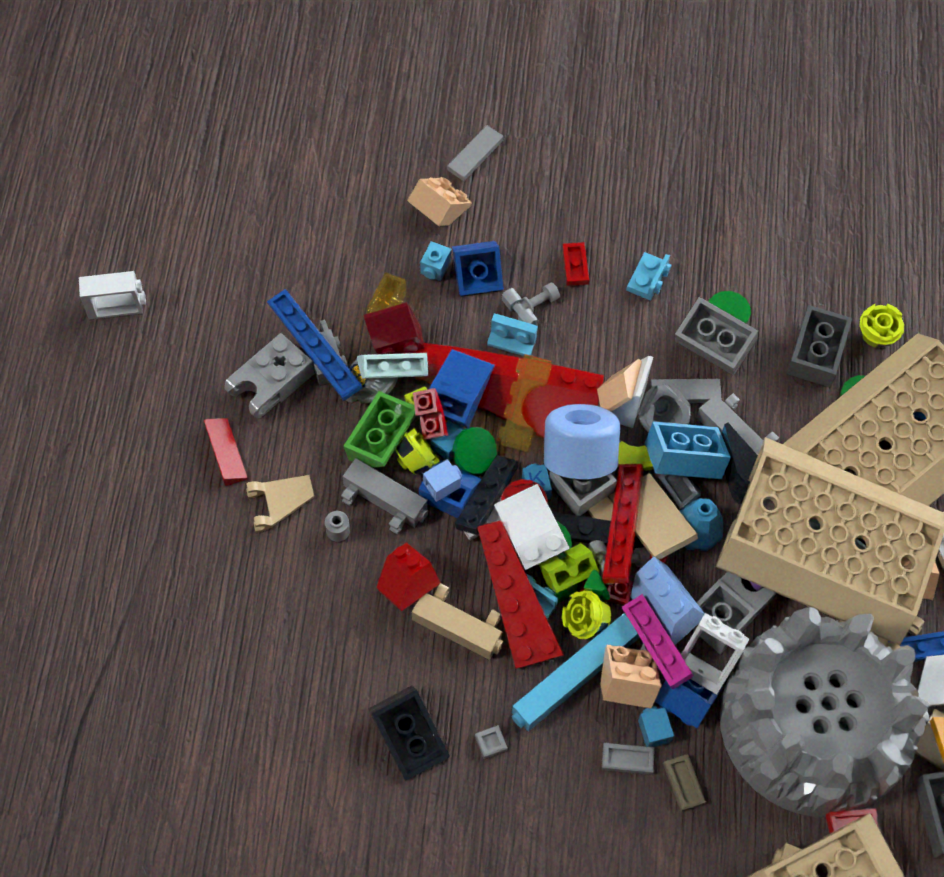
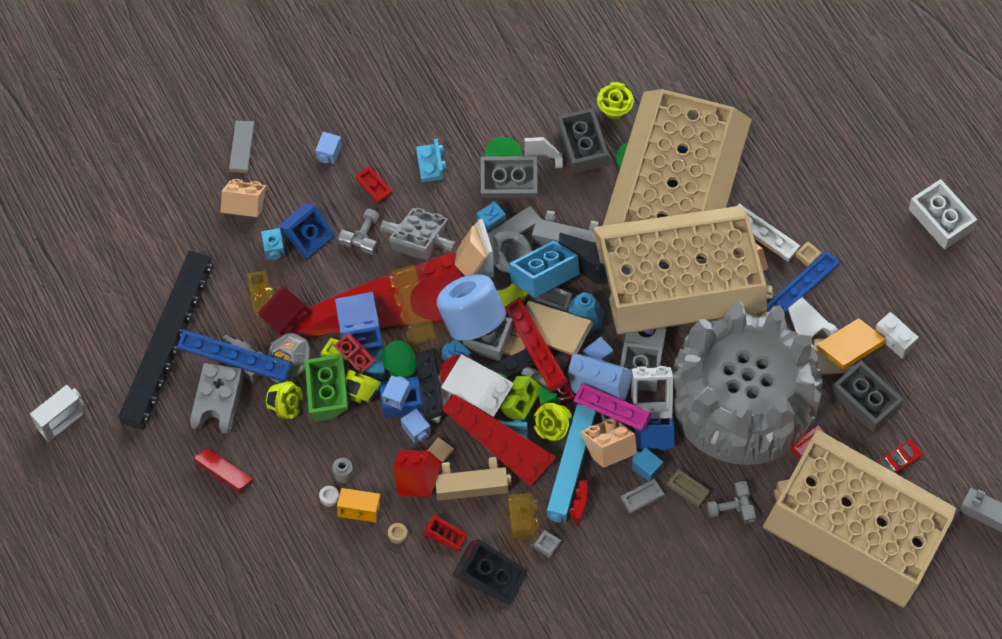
camera: 30 degrees left, 0 degrees up
(251, 298) = (164, 342): none -> black brick
(281, 497) = (288, 476): tan flag -> none
(308, 543) = (329, 496): none -> white tile
(328, 572) = (358, 505): none -> light orange hinge
(332, 418) = (284, 399): none -> neon yellow cone
(346, 627) = (397, 533): none -> tan tile
(384, 493) = (358, 428): light grey brick -> none
(392, 638) = (435, 520): none -> red slope
(393, 365) = (302, 336): light aqua slope -> none
(443, 529) = (416, 426): none -> light blue brick
(450, 570) = (441, 450): none -> tan tile
(484, 694) = (522, 515): none -> clear yellow brick
(512, 335) = (367, 263): medium azure bracket -> none
(550, 726) = (579, 505): none -> red slope
(556, 202) = (328, 148): none -> light blue brick
(583, 337) = (418, 234): none -> light grey slope
(669, 365) = (492, 216): none -> dark azure brick
(687, 572) = (599, 350): none -> light blue brick
(730, 838) = (740, 502): none -> light grey bar
(769, 328) = (543, 150): none -> white flag

